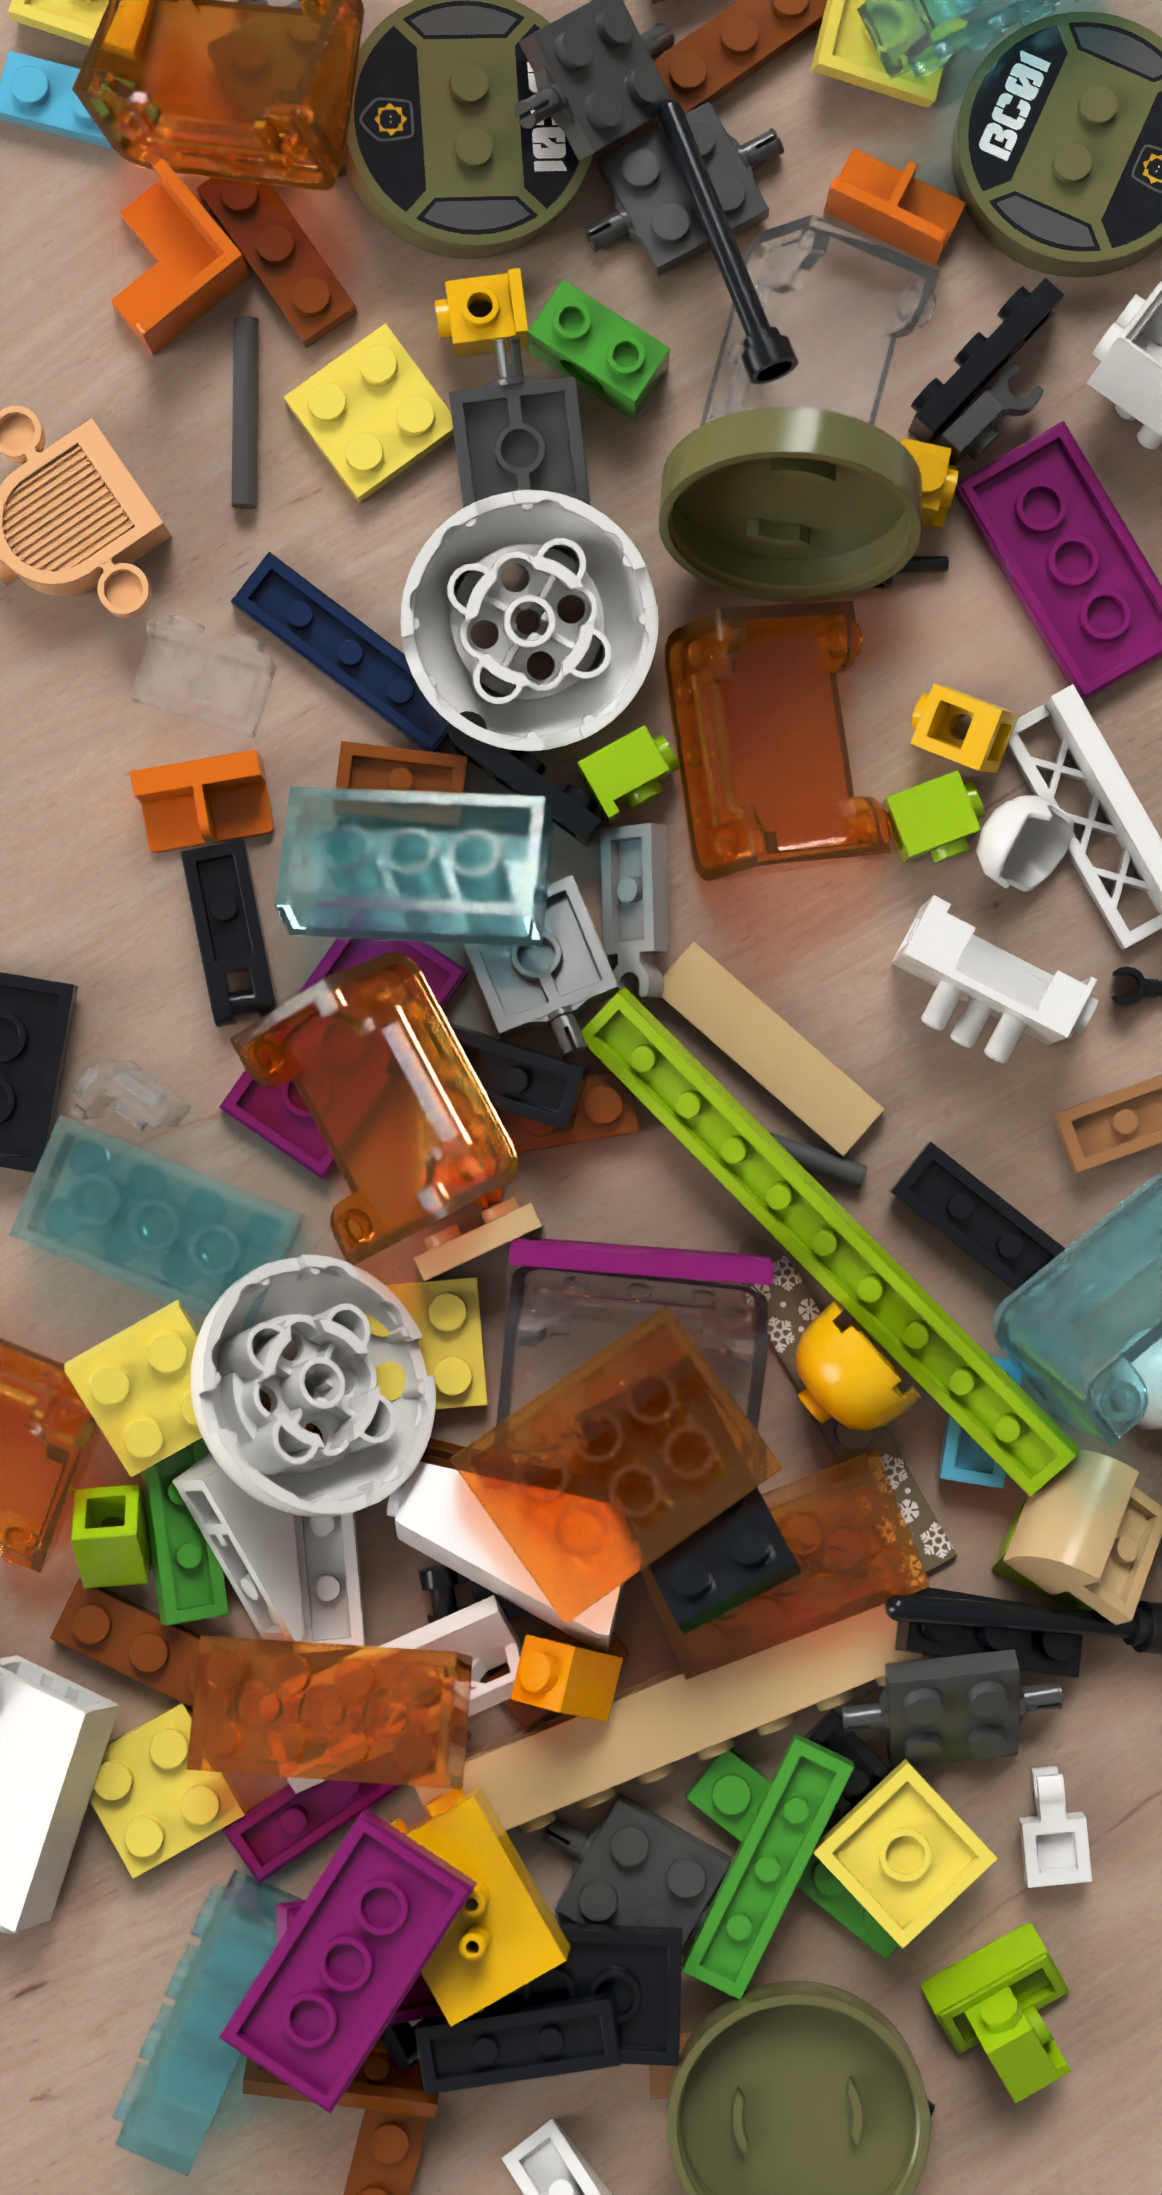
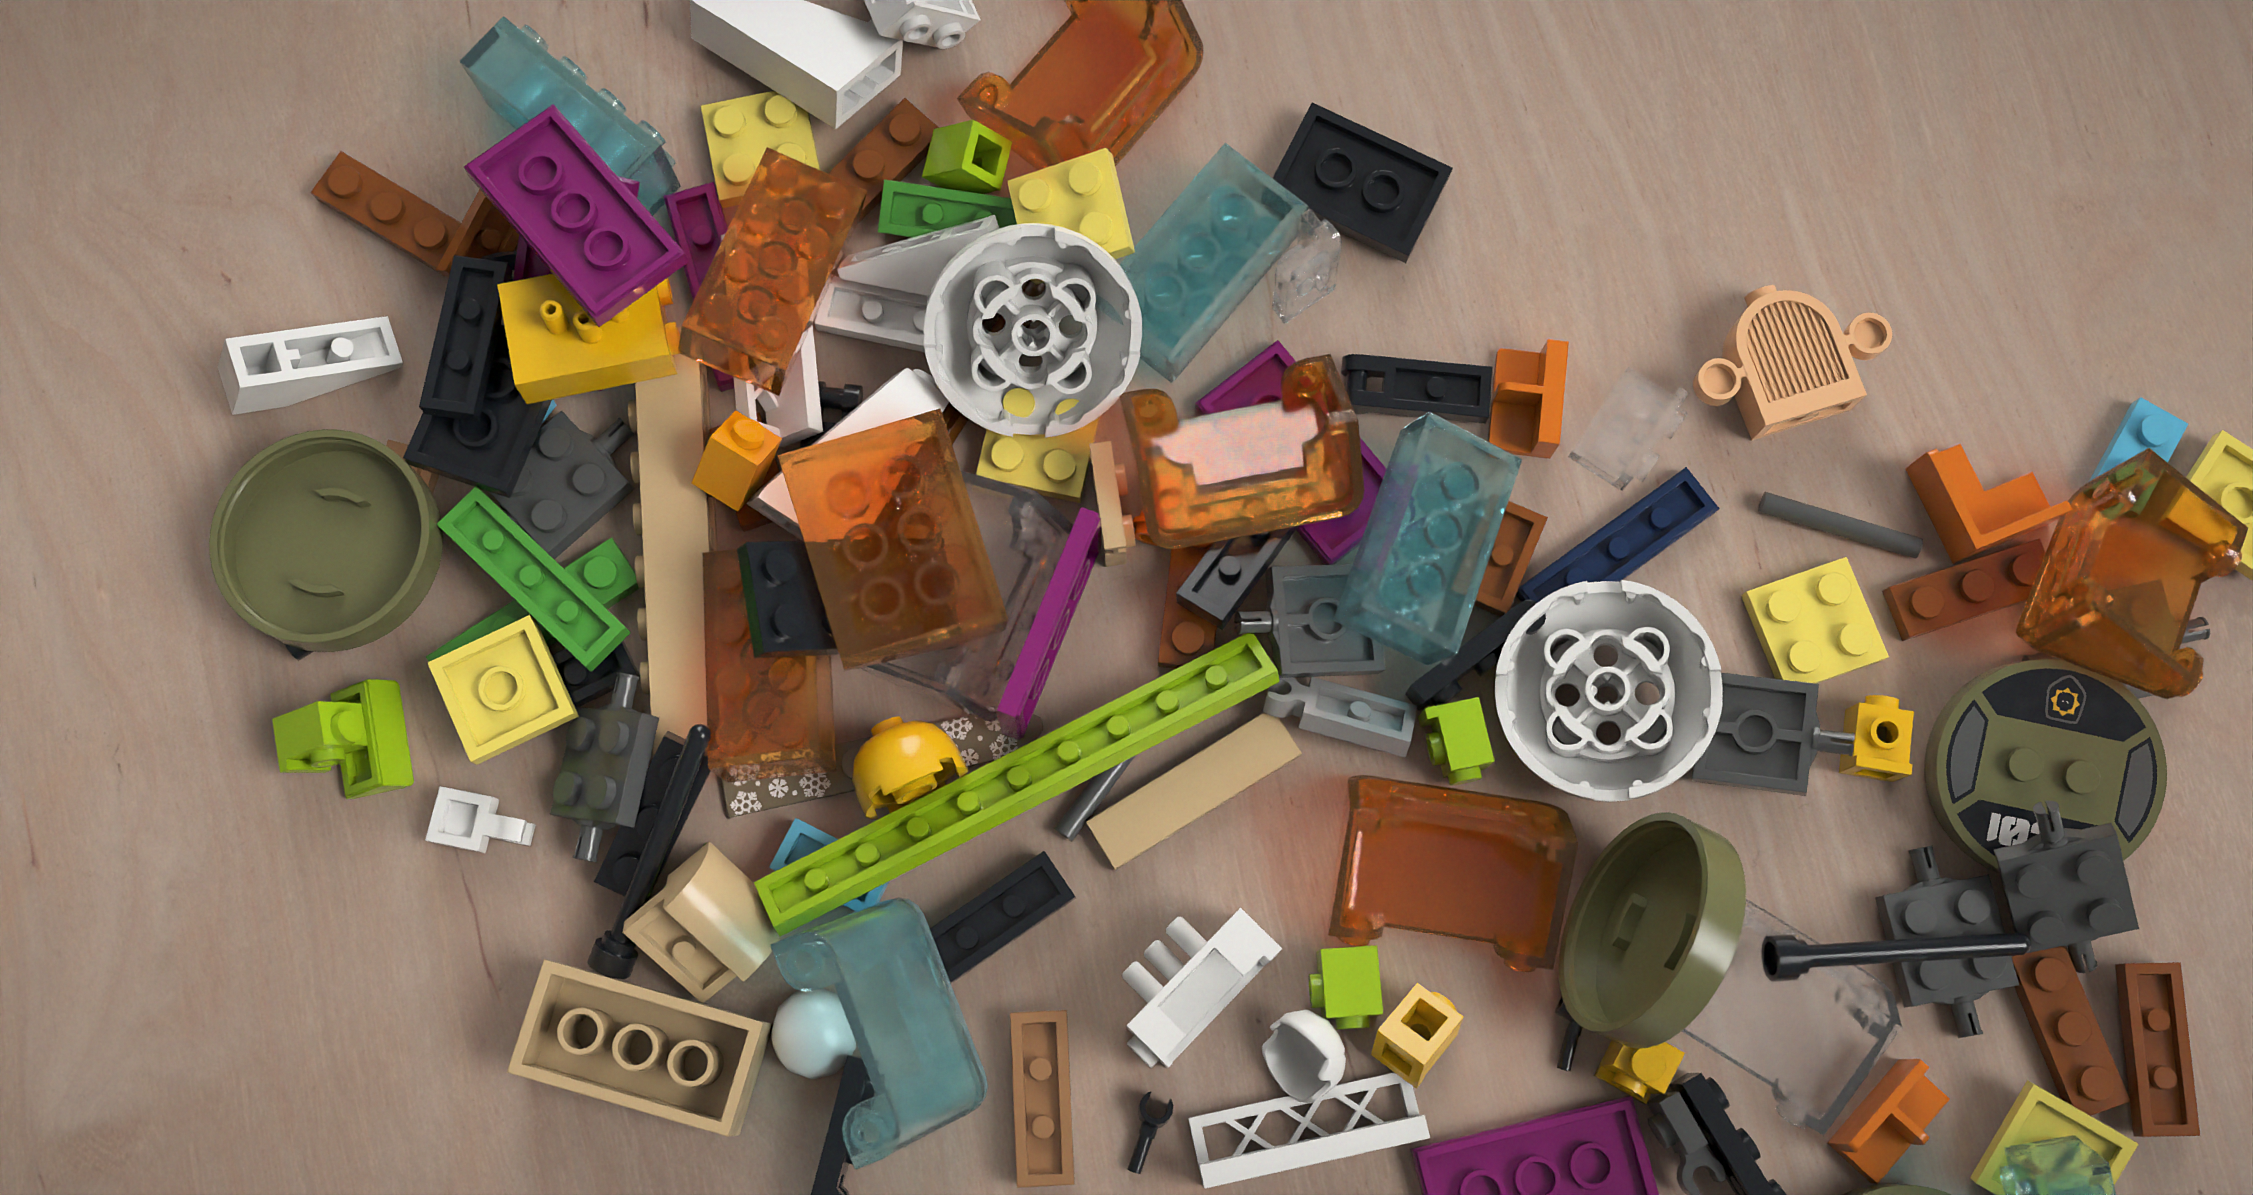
camera: 105 degrees right, 10 degrees down
(598, 348) = (1824, 823): bright green brick -> none

